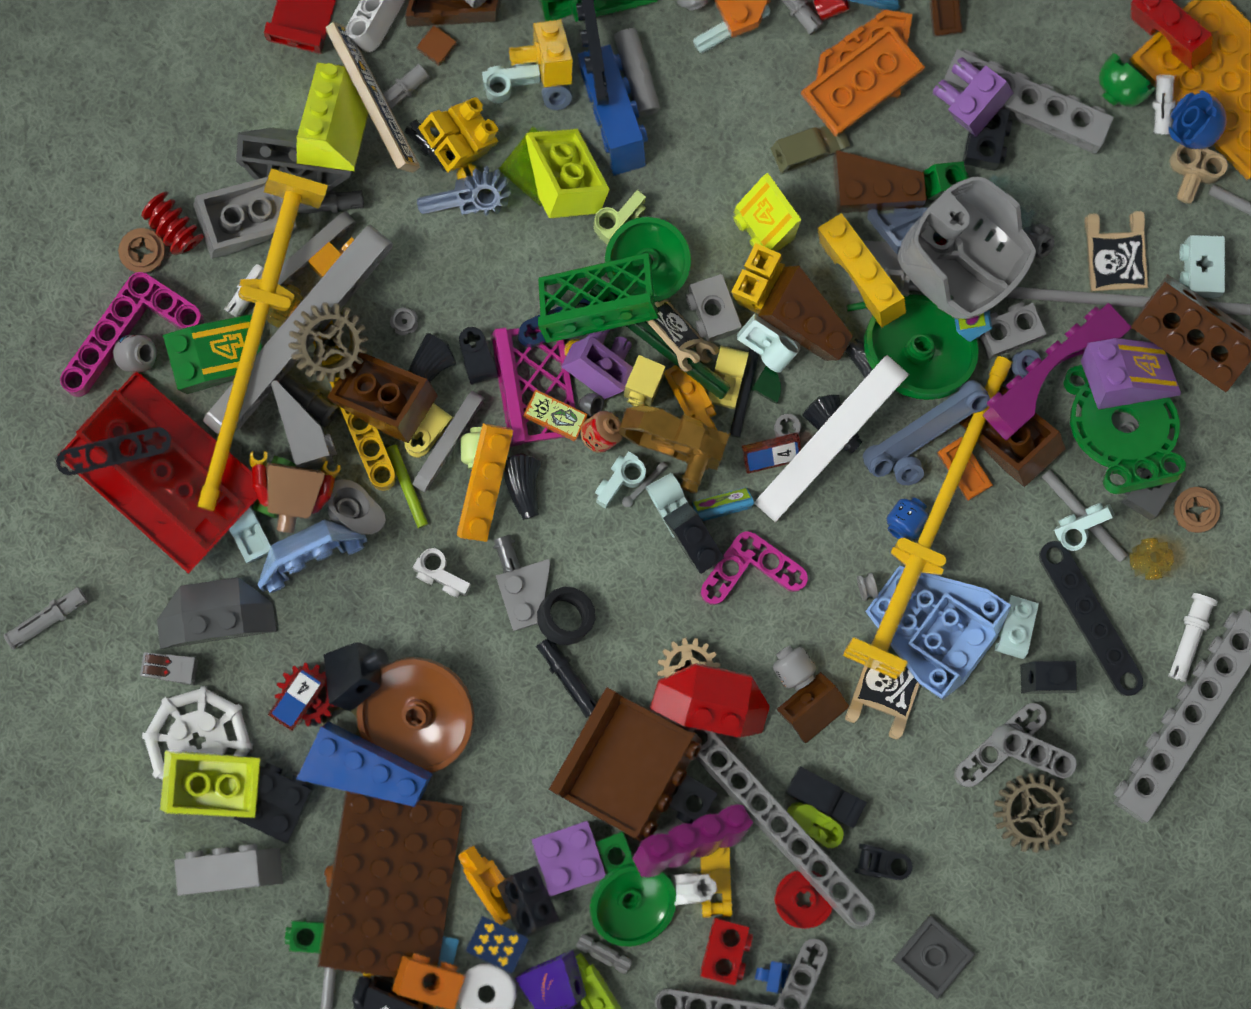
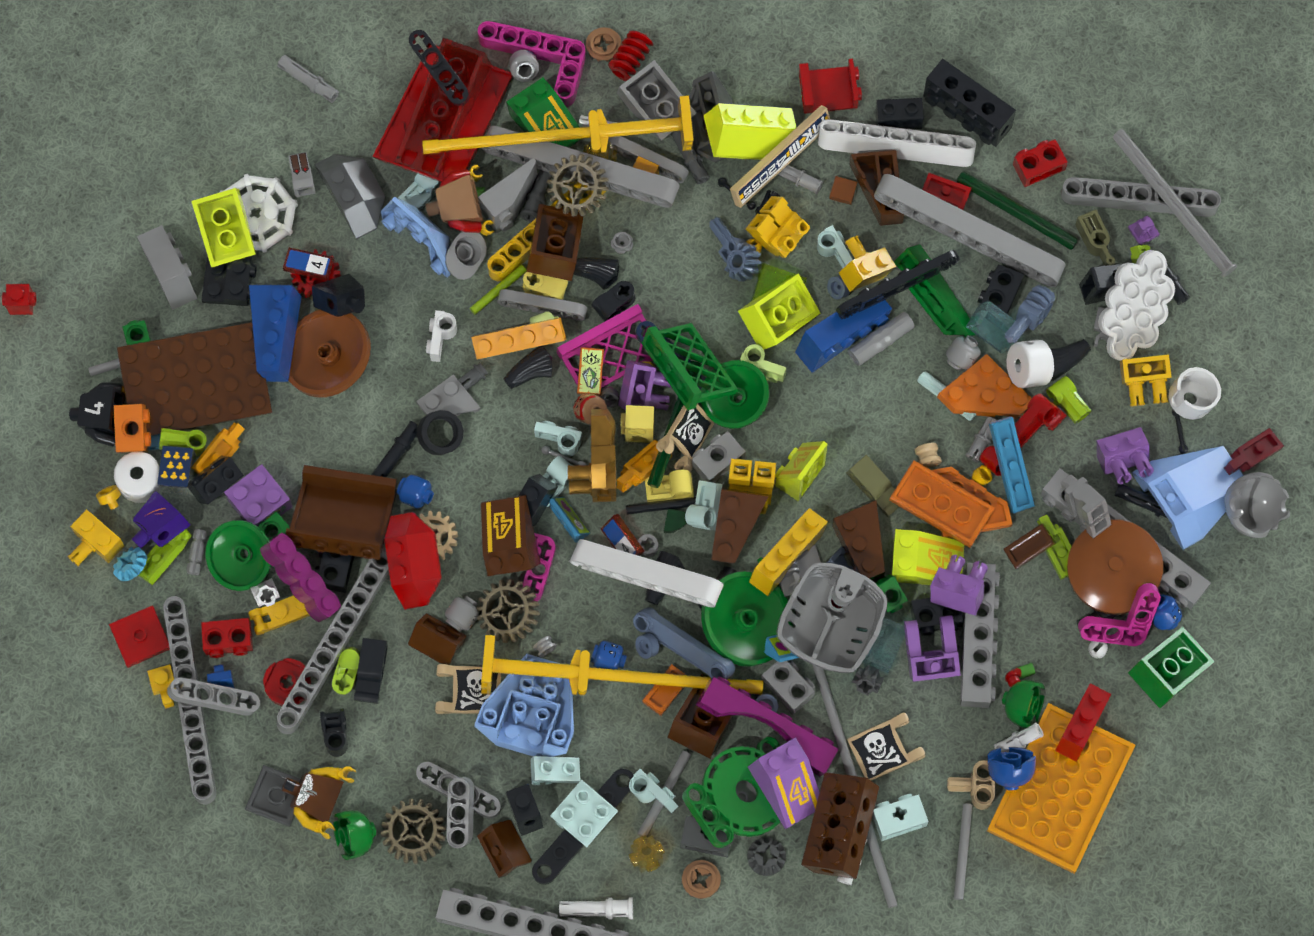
camera: 80 degrees right, 10 degrees down
(372, 178) = (722, 182): none -> black hinge
(461, 927) = (182, 438): none -> lime piece
(626, 670) = (415, 491): none -> blue head
(729, 580) = (508, 536): none -> reddish brown slope
(797, 74) = (928, 455): none -> tan wheel
(814, 600) = (489, 614): none -> dark tan gear
(842, 25) = (982, 475): none -> yellow hinge
(915, 126) = (920, 555): none -> neon yellow slope
(957, 910) = (316, 796): none -> torso
(1015, 881) = (354, 833): none -> green cylinder
(1045, 159) = (933, 663): none -> medium lavender brick
(1081, 612) = (583, 813): none -> light aqua hinge
(1082, 75) = (1019, 673): none -> arm
(1086, 716) = (504, 847): none -> reddish brown panel
(1197, 441) = (756, 861): none -> dark grey gear

